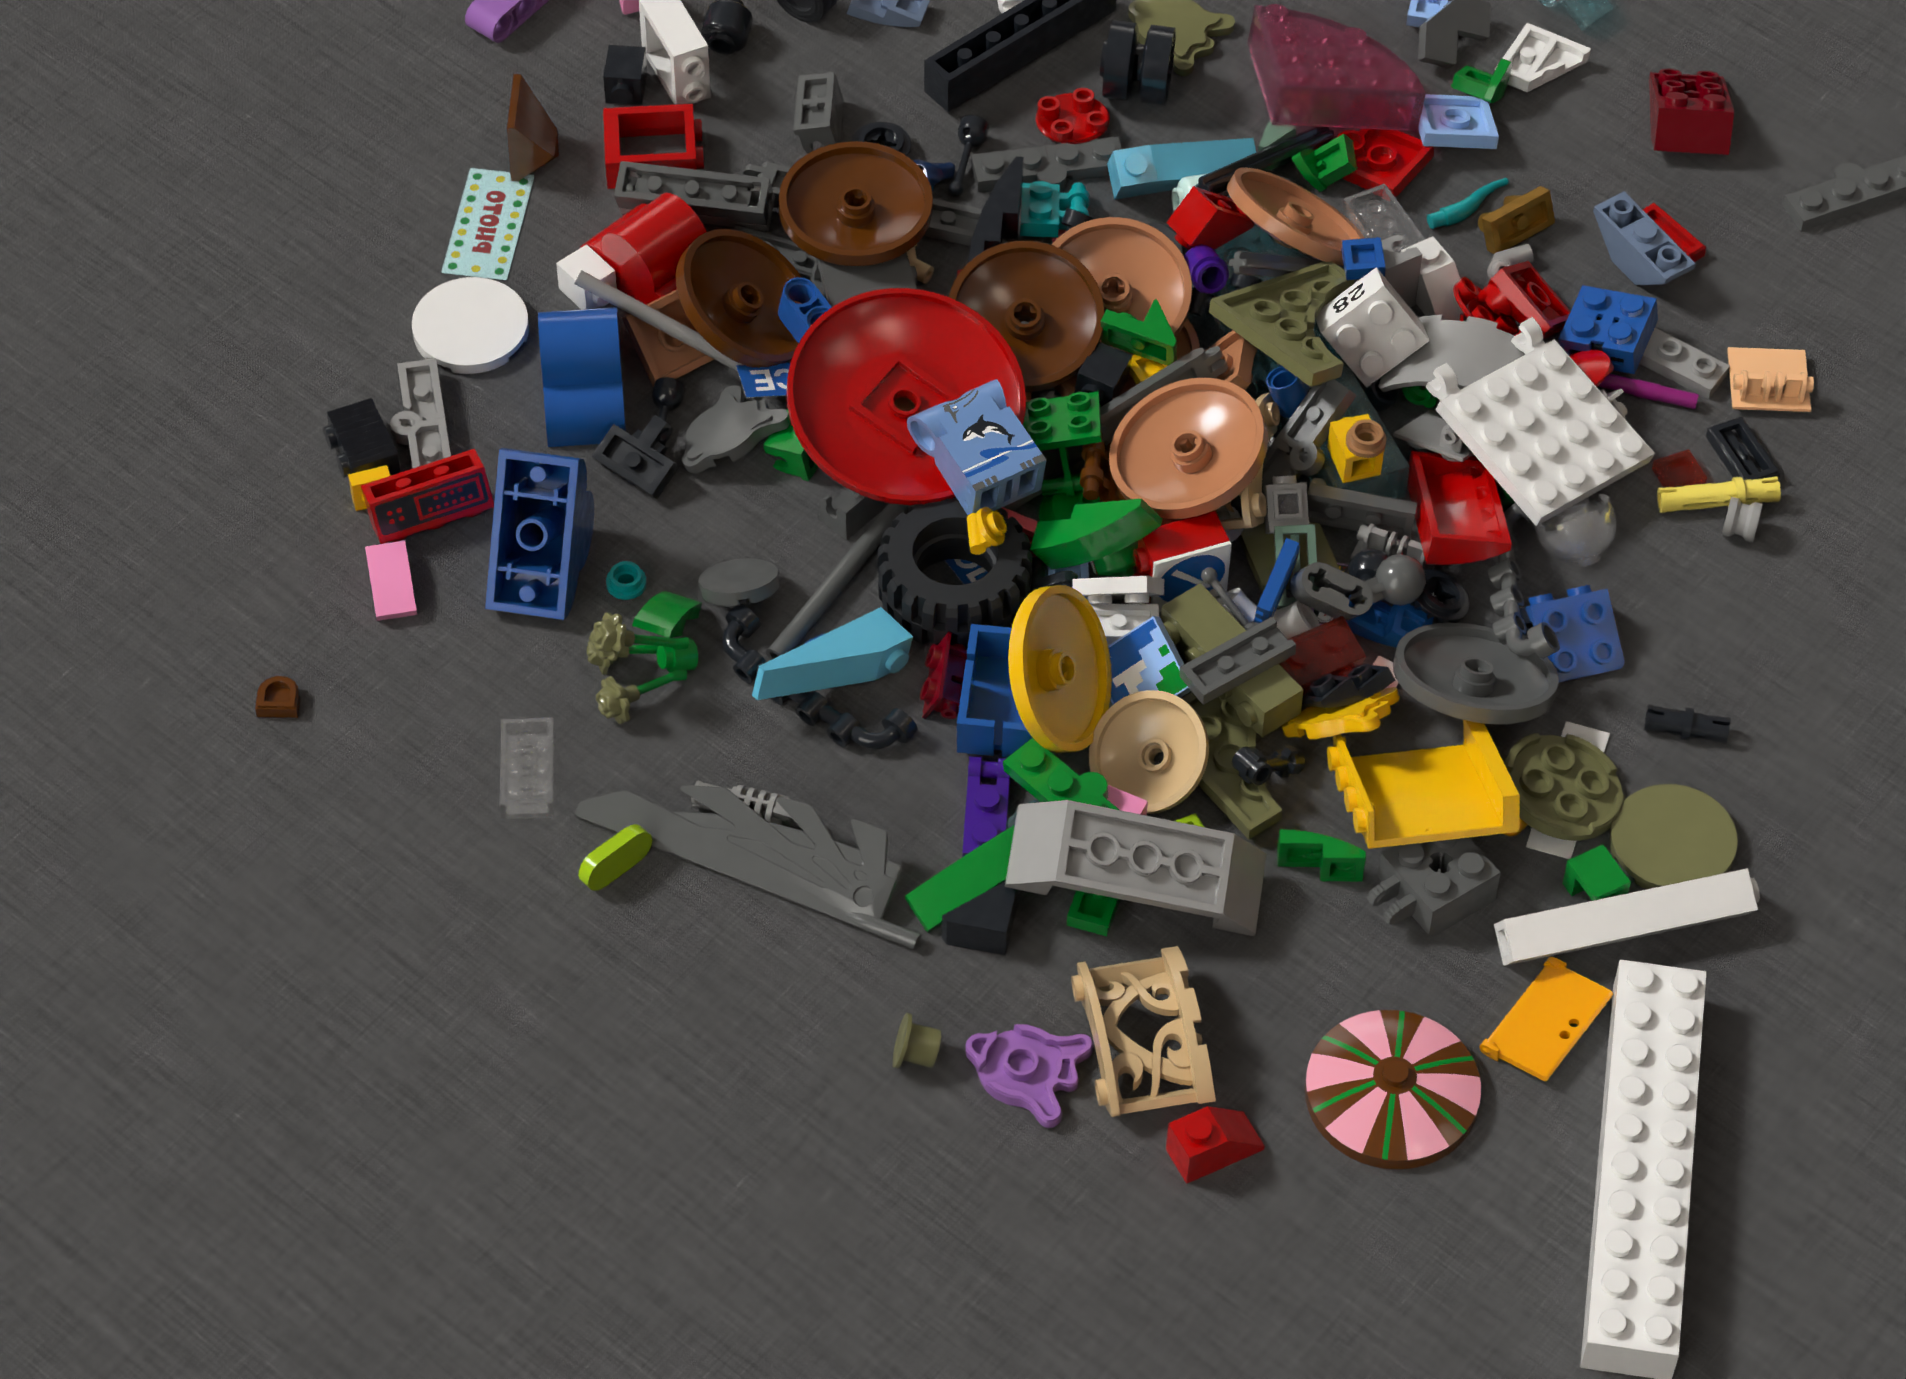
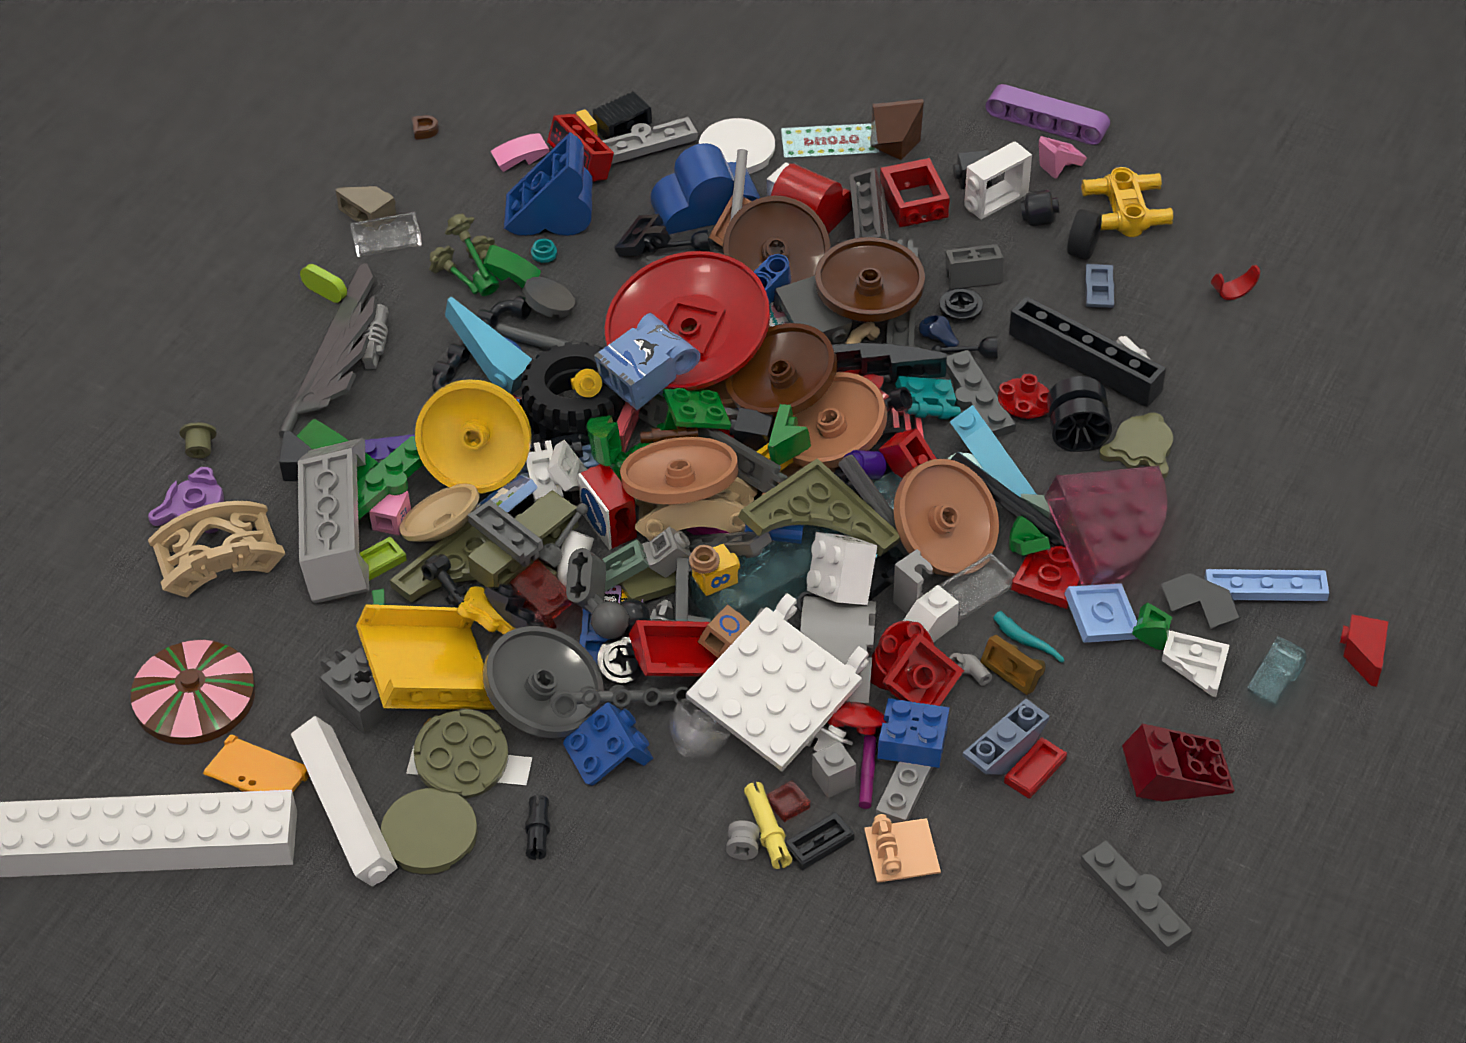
camera: 80 degrees right, 5 degrees down
(457, 784) = (365, 202): none -> dark tan slope
(1210, 1141) = (137, 596): red slope -> none
(1277, 581) = (597, 544): blue tile -> none
(1362, 256) = (896, 546): blue tile -> none
(1450, 462) = (723, 631): none -> medium nougat brick
(1596, 874) = (377, 780): green panel -> none
(1654, 412) = (833, 769): none -> light grey brick

